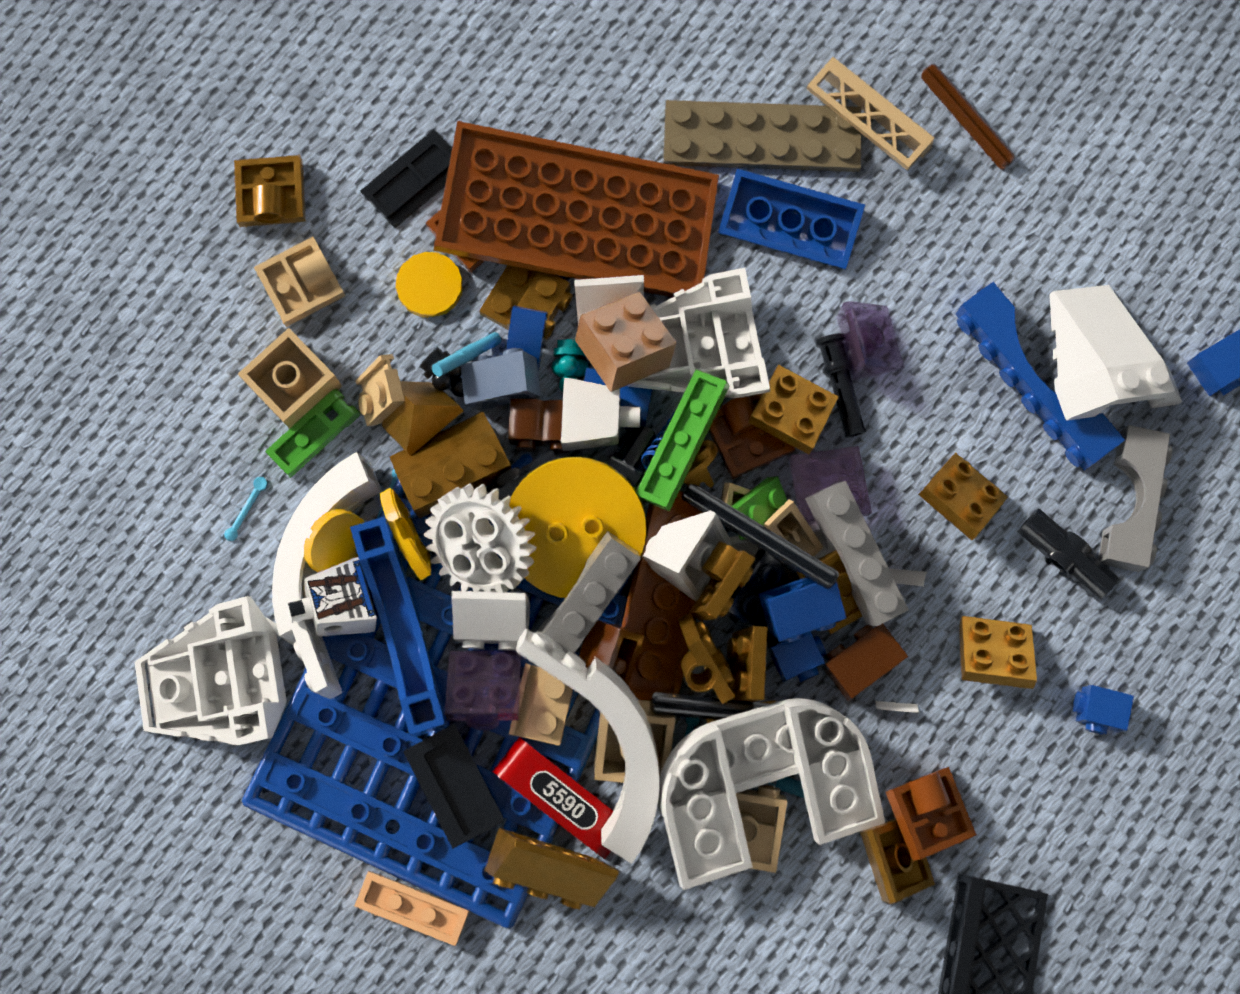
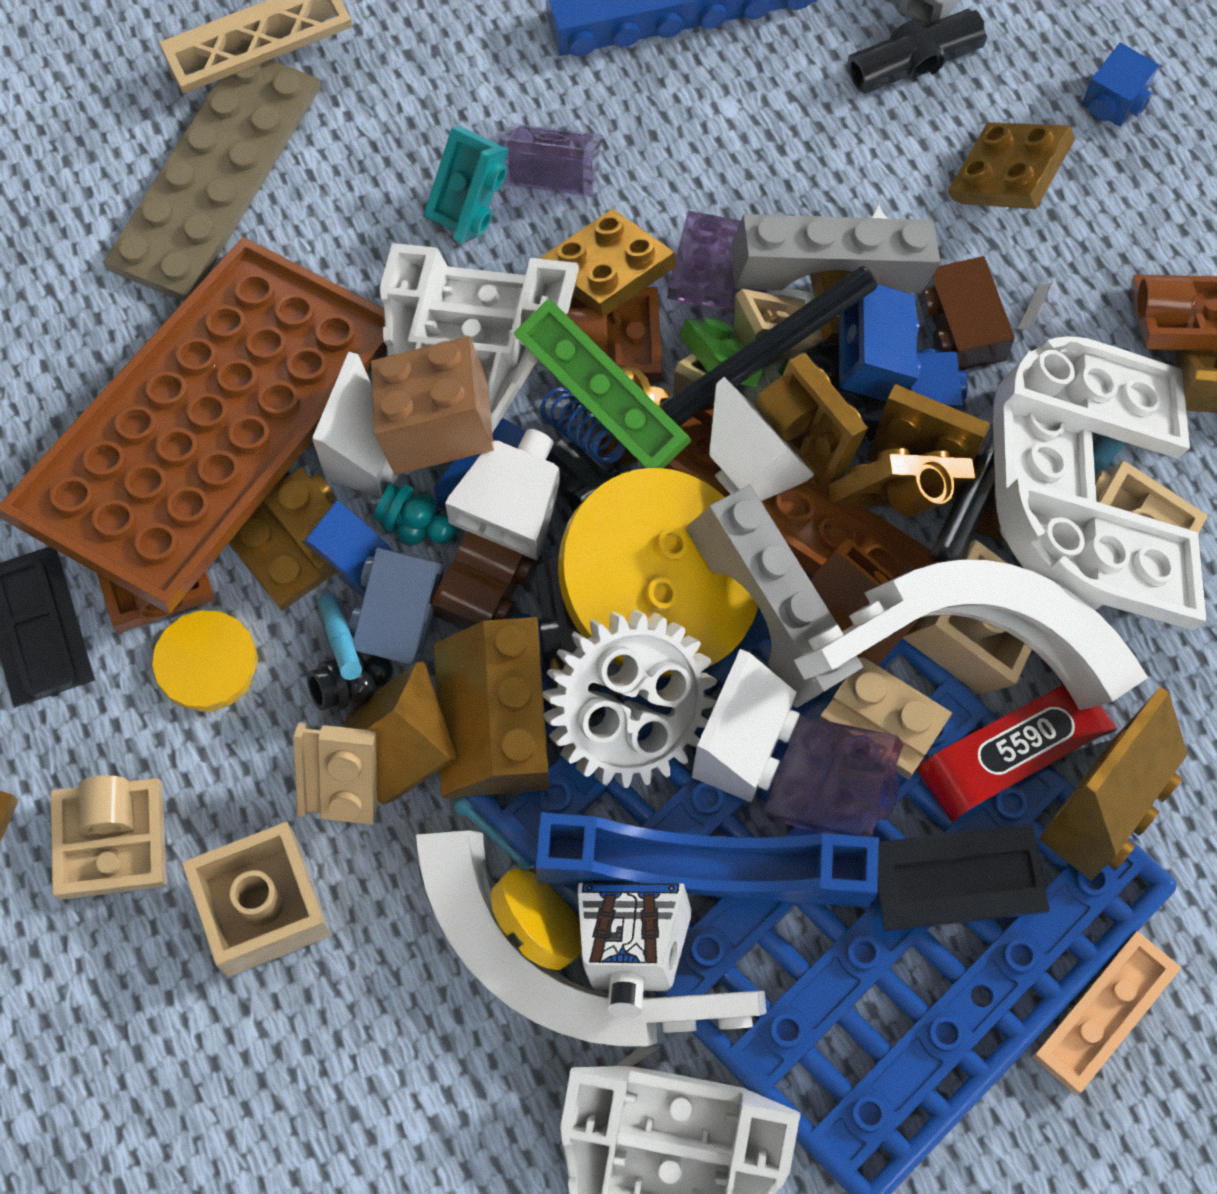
camera: 70 degrees left, 10 degrees down
(260, 484) = (391, 1014): medium azure hinge -> none
(312, 433) = (350, 906): bright green plate -> none
(405, 534) = (581, 803): yellow tile -> none
(791, 219) = (344, 180): blue slope -> none
(814, 295) = (466, 183): none -> teal bracket
(838, 370) = (652, 217): black pin -> none
(963, 496) = (801, 125): pearl gold plate -> none

